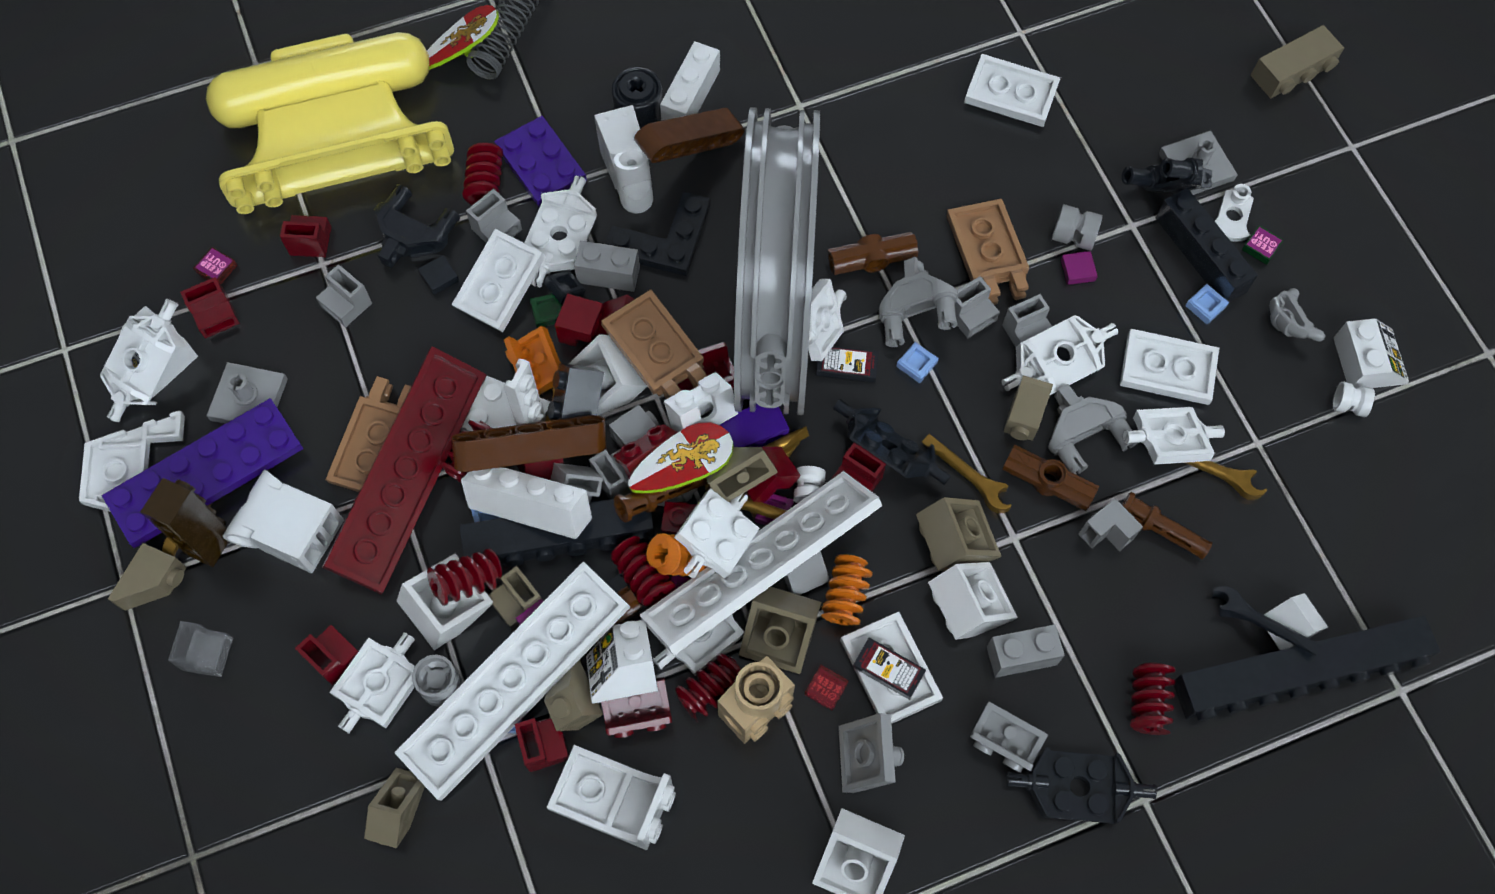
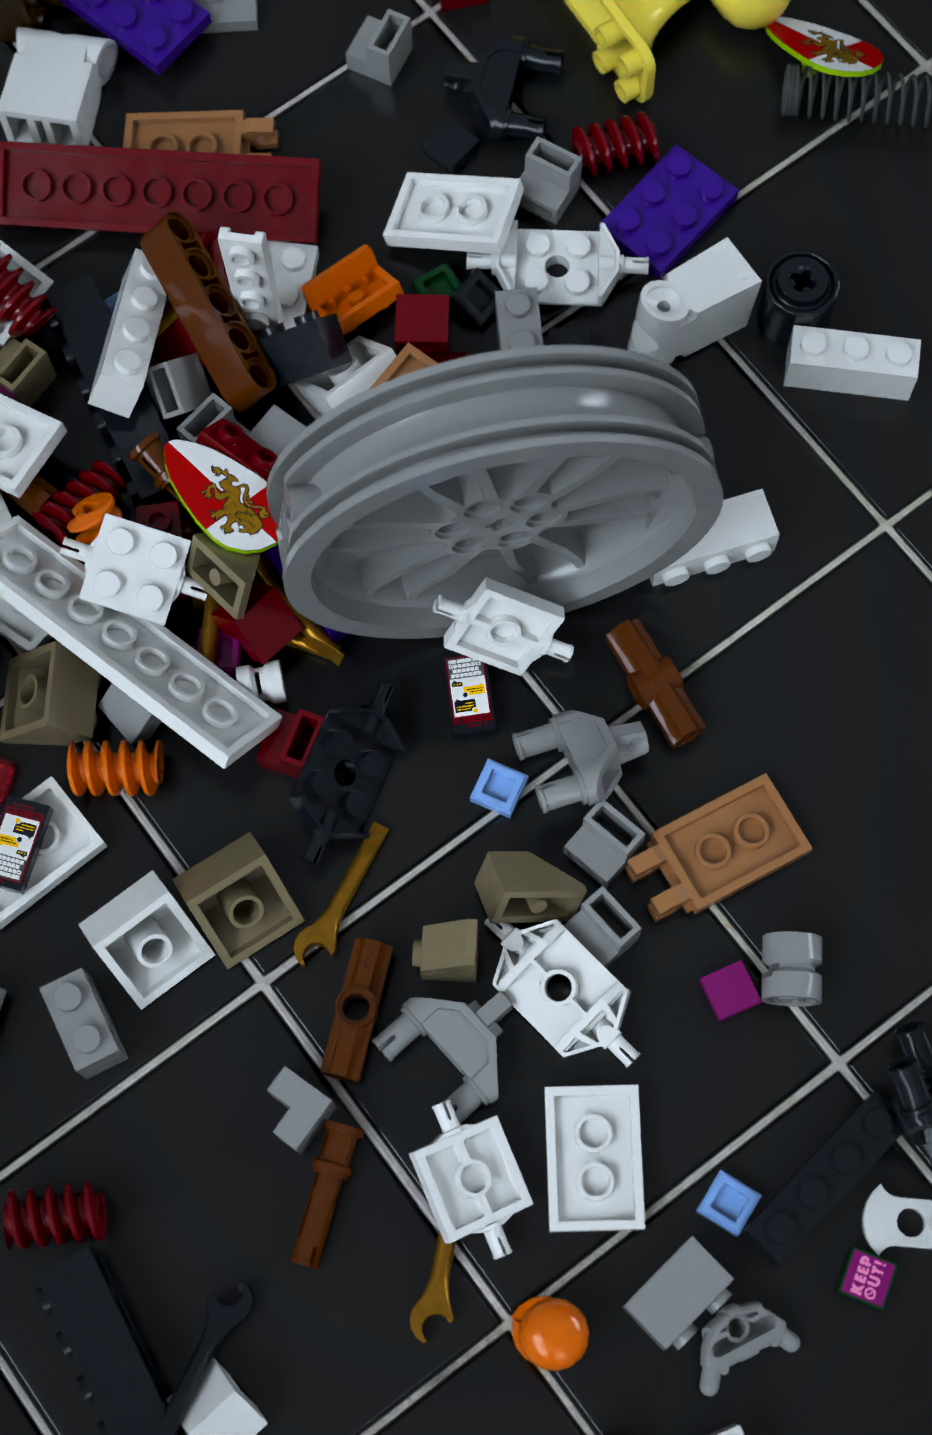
camera: 80 degrees right, 5 degrees up
(688, 135) = (745, 372): reddish brown beam -> none
(993, 359) = (526, 889): none -> dark tan slope
(1259, 341) = (679, 1294): none -> light grey brick
(1276, 408) = (550, 1333): none -> orange helmet

